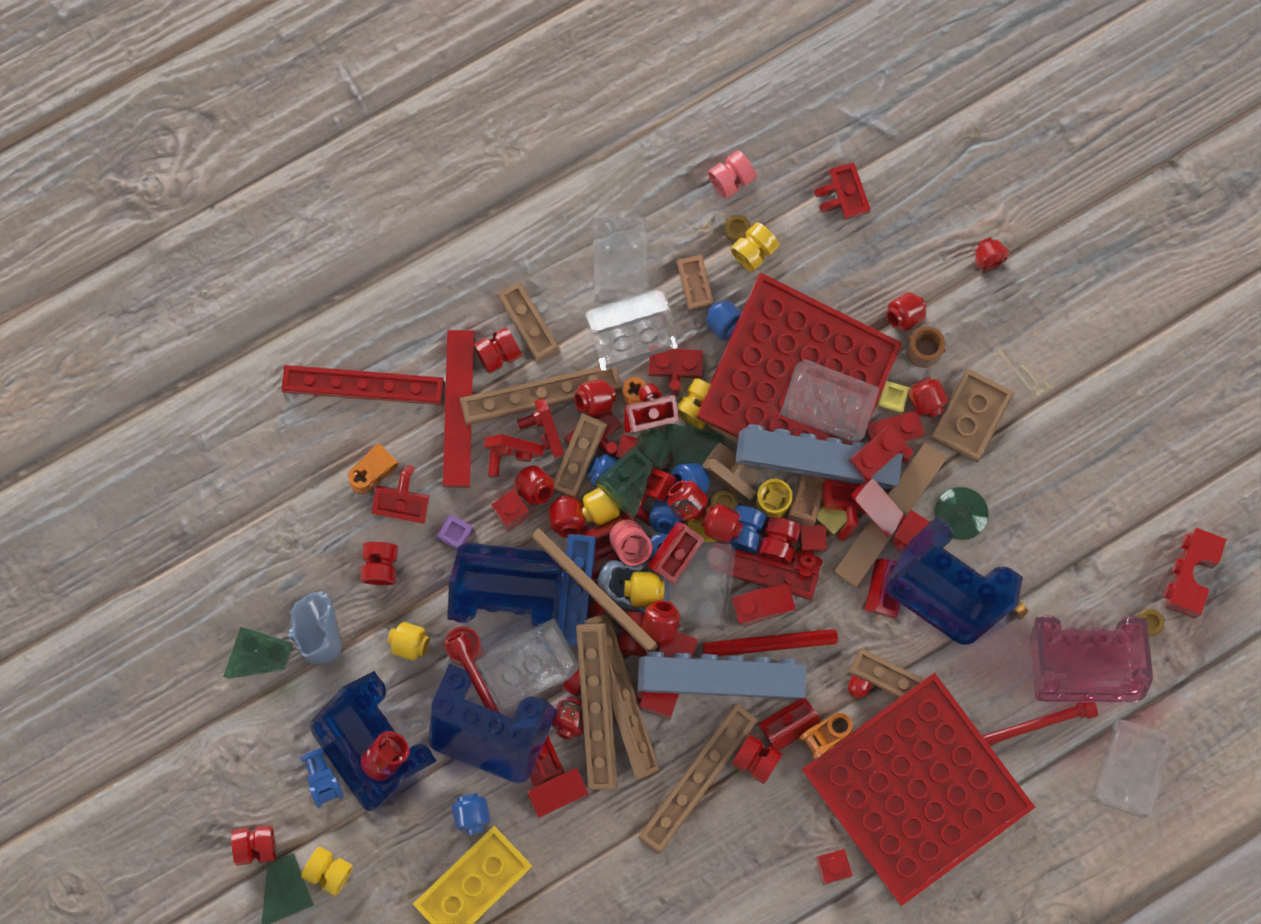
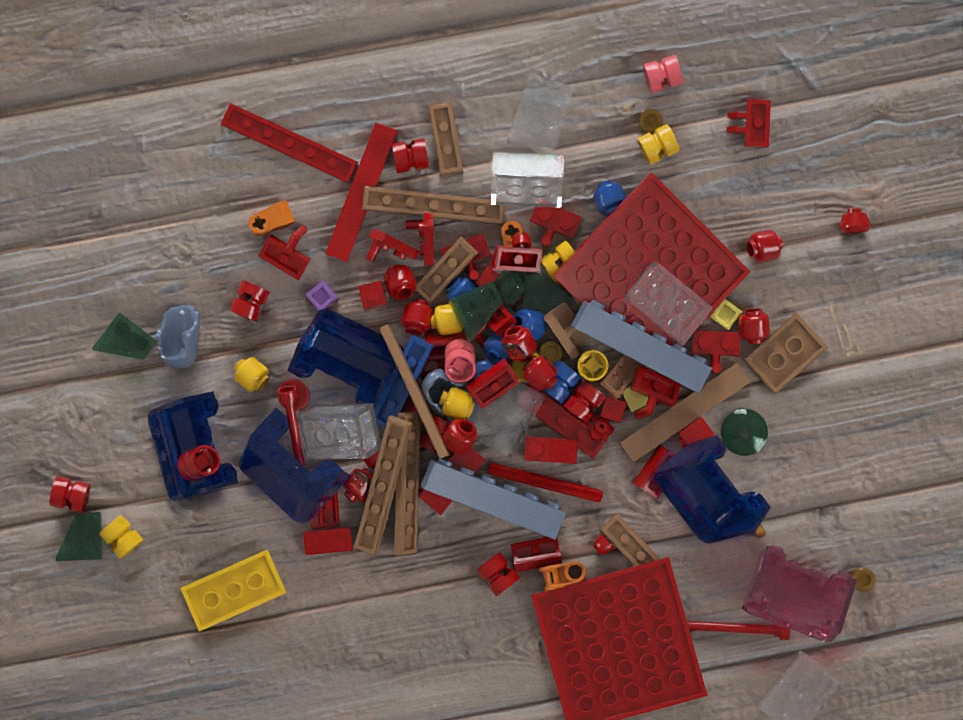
camera: 25 degrees right, 10 degrees up
(321, 780) = (142, 460): blue connector -> none
(471, 813) = (252, 532): blue head -> none
(594, 397) = (476, 226): red head -> none
(695, 283) = (597, 156): nougat plate -> none
(698, 778) = (445, 570): medium nougat tile -> none
(833, 867) = (527, 682): red brick -> none
(878, 452) = (691, 360): red plate -> none
(878, 506) = (675, 405): slope -> none
(926, 347) = (768, 282): dark orange piece -> none
(1185, 593) = (900, 566): red arch -> none

